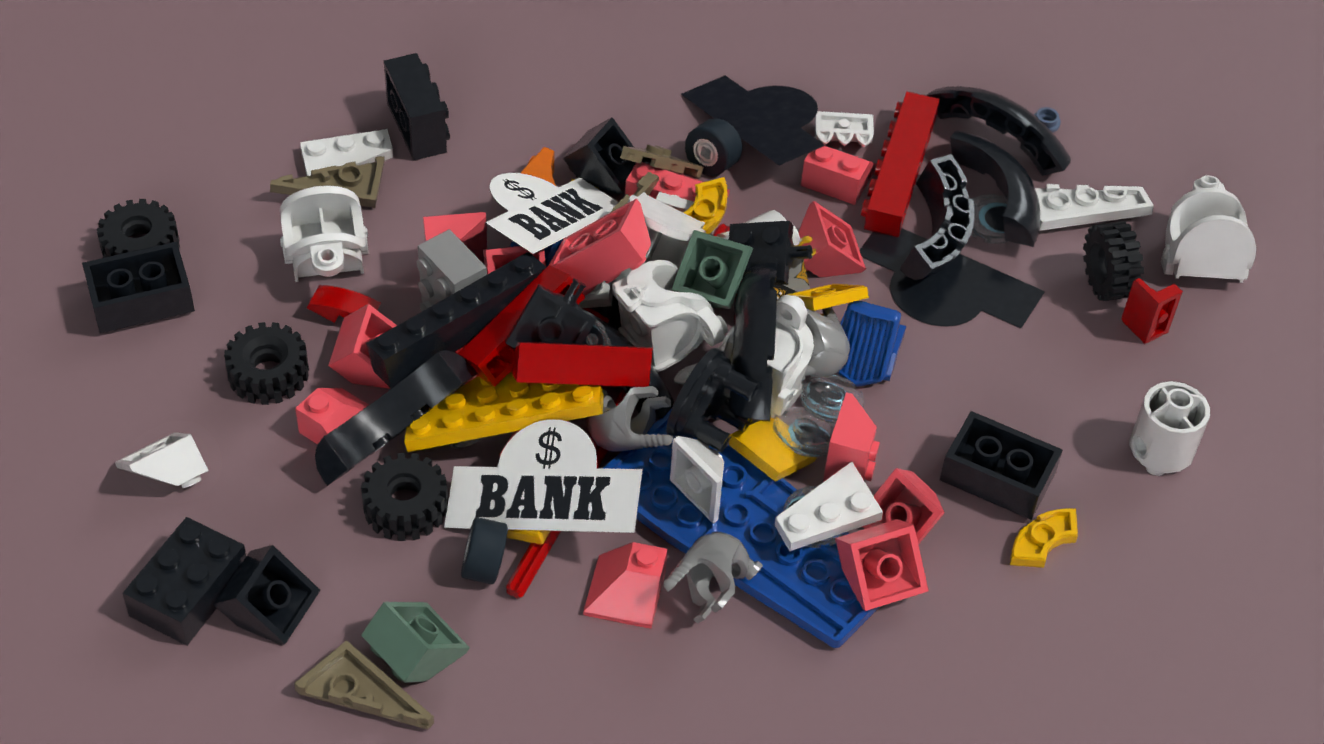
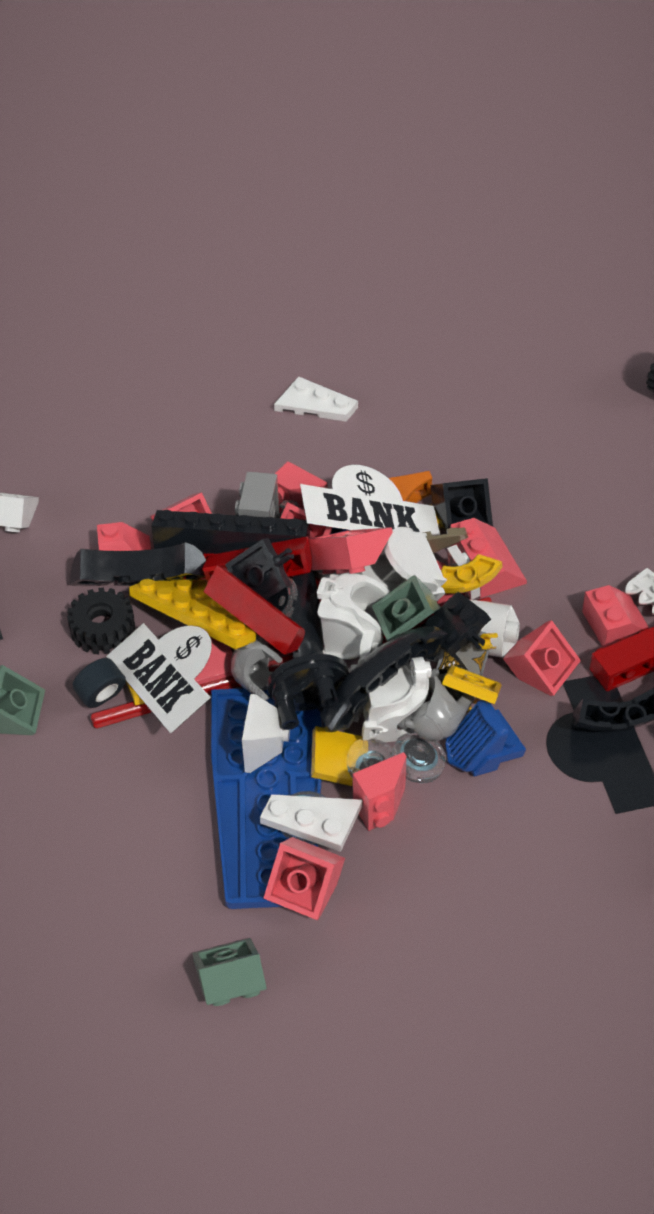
camera: 50 degrees right, 0 degrees up
(132, 219) = (147, 385): black tyre -> none
(138, 287) = (108, 401): black brick -> none
(261, 346) = (122, 479): black tyre -> none
(323, 231) = (235, 437): white animal -> none
(337, 301) = (202, 481): red slope -> none
(360, 179) = (293, 419): dark tan wing -> none
(416, 106) = (382, 395): black brick -> none
(627, 584) = (156, 771): coral slope -> none
(661, 158) = (492, 526): dark tan wing -> none
(711, 556) = (201, 786): light grey piece -> none
(713, 146) = (543, 544): black wheel -> none
(763, 117) = (601, 544): black sticker -> none
(909, 500) = (369, 858): coral slope -> none
(909, 693) = (229, 972): none -> sand green slope
(1000, 465) = (468, 884): black brick -> none
(1043, 535) = (447, 953): yellow tile -> none
(1169, 427) = (613, 954): white cylinder -> none

